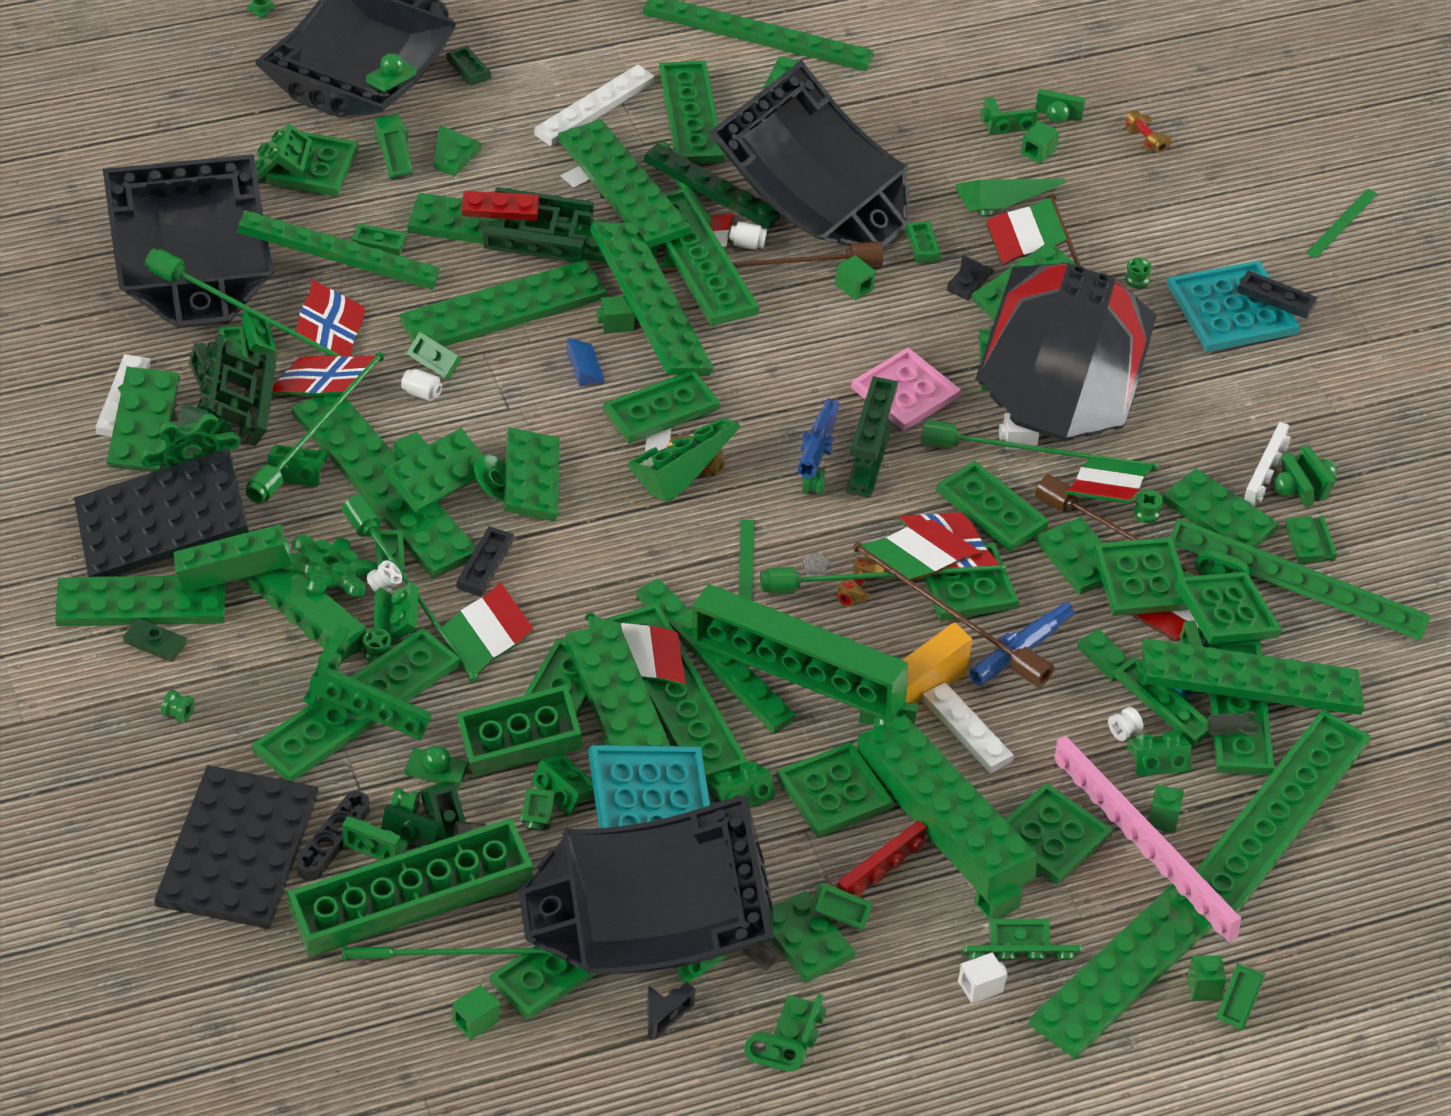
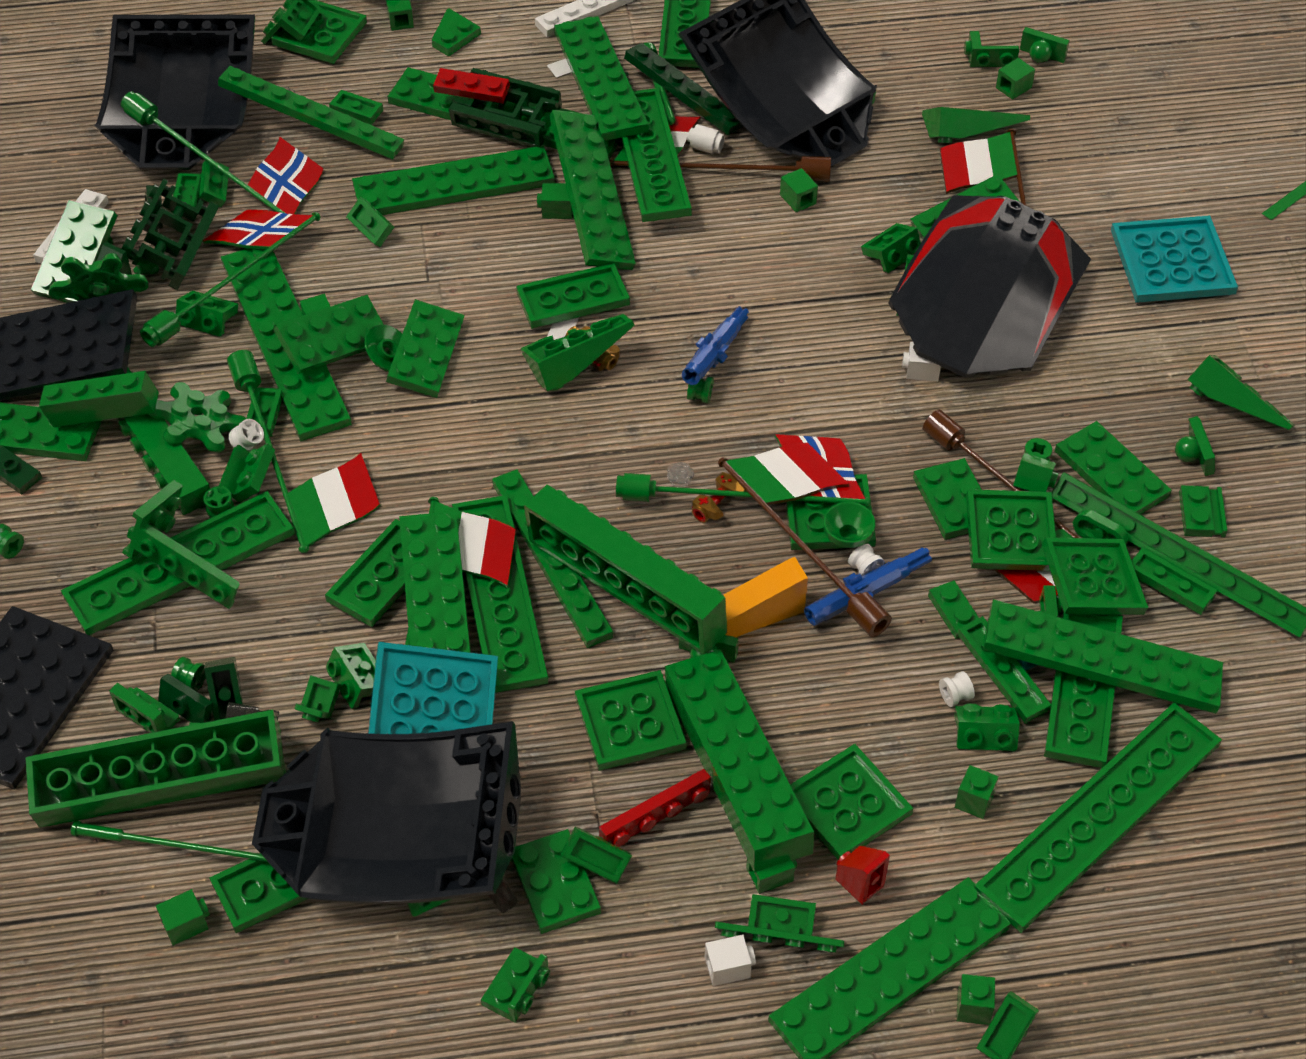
camera: 15 degrees right, 5 degrees up
(331, 834) = (102, 695): black beam -> none
(396, 152) = (396, 27): green tile -> none
(421, 384) = (349, 248): white brick -> none
(436, 766) = (235, 638): green tile -> none
(484, 561) = (352, 430): black plate -> none
(520, 730) = (321, 613): green brick -> none
(584, 362) = (513, 244): blue slope -> none
(665, 1011) = (376, 949): black slope -> none
(746, 558) = (611, 467): green sticker -> none
(748, 780) = (535, 703): green bracket -> none
(775, 1052) = (481, 1013): green plate -> none
(871, 436) = (765, 350): dark green fence -> none
(919, 390) = (819, 305): bright pink plate -> none
(923, 242) = (875, 162): green plate -> none
(962, 322) = (893, 246): none -> green bracket
(967, 728) = (789, 670): white plate -> none
(969, 278) = (913, 202): black slope -> none
(992, 506) = (876, 435): green plate -> none
(993, 582) = (852, 517): none -> green piece
(1013, 620) = (864, 559): none -> white wheel
(1082, 887) = (862, 872): none -> red slope
(1098, 478) = (993, 421): flag -> none
(1138, 273) = (1083, 215): green wheel -> none
(1148, 839) = (948, 831): bright pink plate -> none
(1152, 523) = (1035, 474): none -> green brick
(1153, 141) = (1130, 88): pearl gold piece -> none
(1232, 724) = (1070, 706): clear smoke bar -> none
(1270, 459) = (1169, 430): white plate -> none
(1277, 294) = (1220, 252): black plate -> none
(1298, 605) = (1173, 581): none -> green plate
(1311, 423) = (1224, 385): none -> green wedge
(1319, 472) = (1224, 441): green tile -> none

